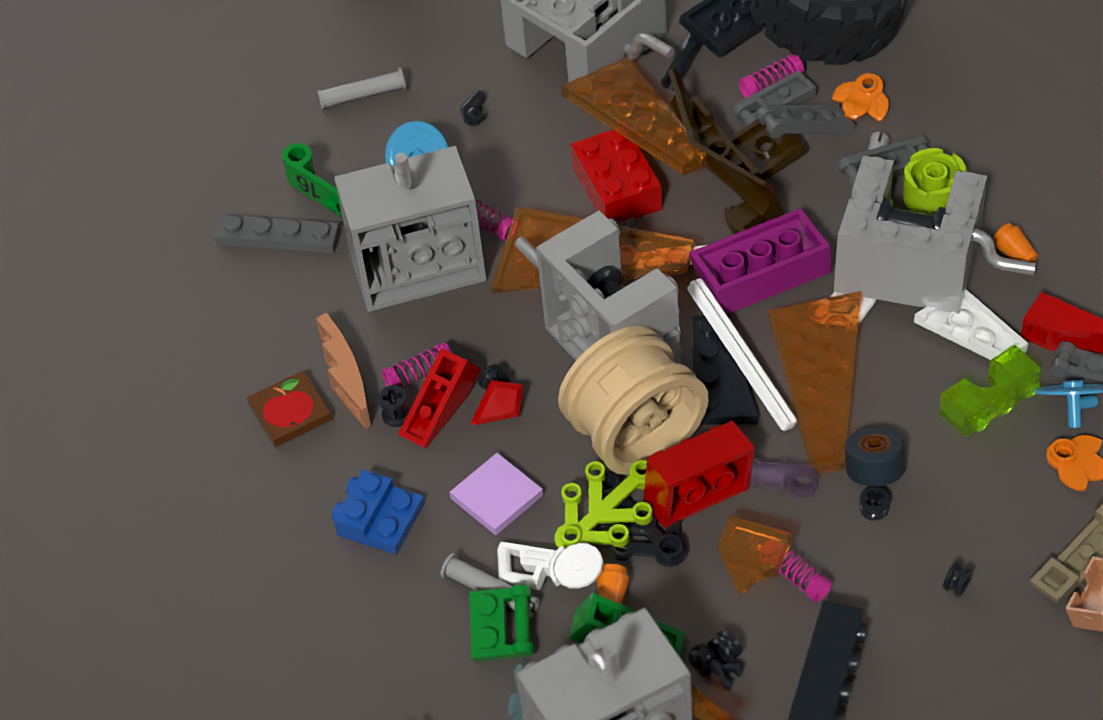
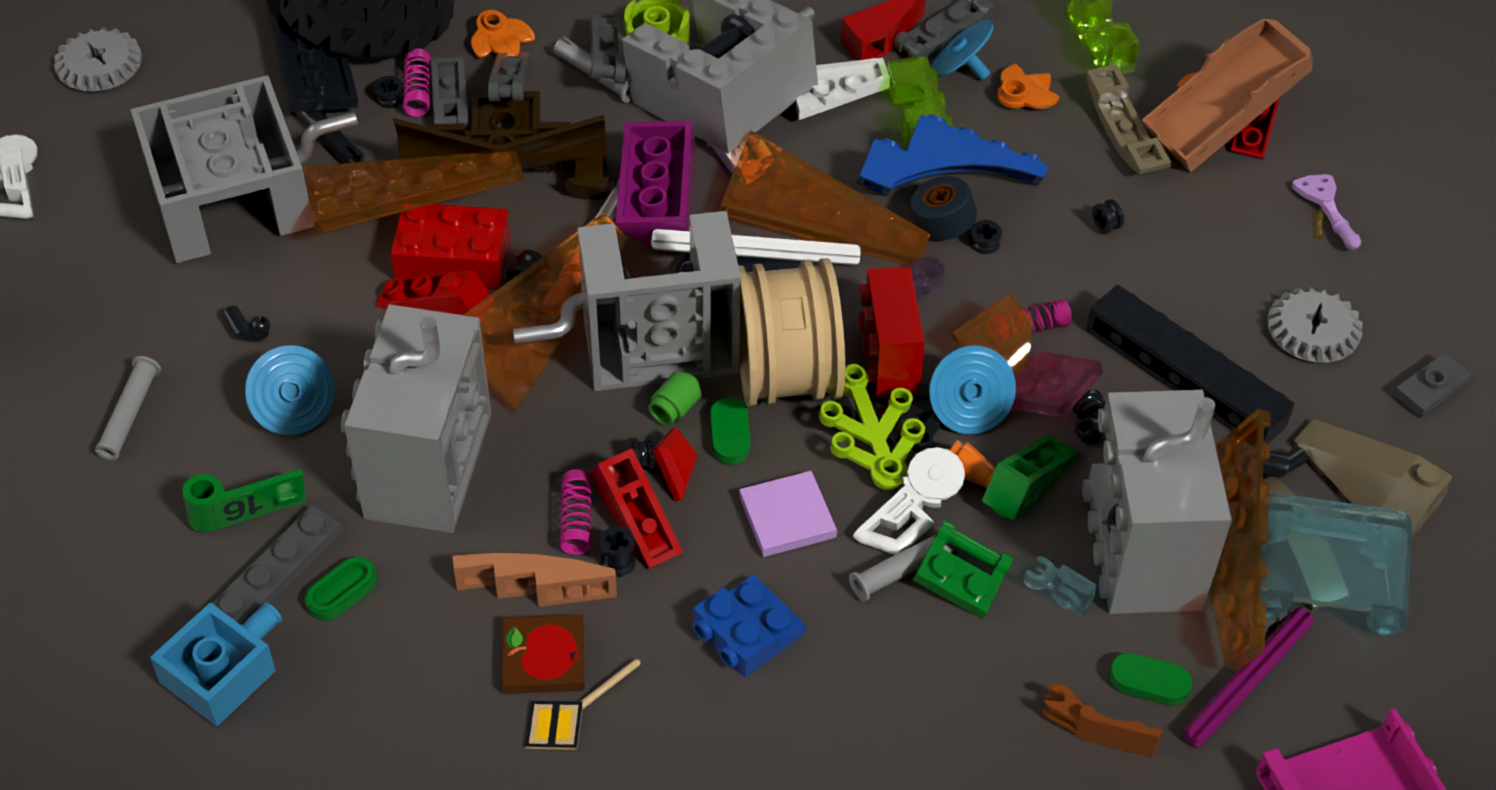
camera: 70 degrees left, 0 degrees up
(179, 238) = (217, 661): none -> dark azure brick
(242, 442) = (558, 723): none -> piece
(283, 275) = (341, 588): none -> green tile
(547, 428) = (730, 431): none -> green tile
(551, 372) = (674, 398): none -> bright green brick
(562, 189) = (440, 292): none -> red slope
(678, 553) = (972, 389): none -> dark azure shield
(727, 608) = (1054, 383): none -> clear pink plate
(750, 60) = (386, 84): none -> black bush
(933, 421) = (943, 150): none -> blue arch

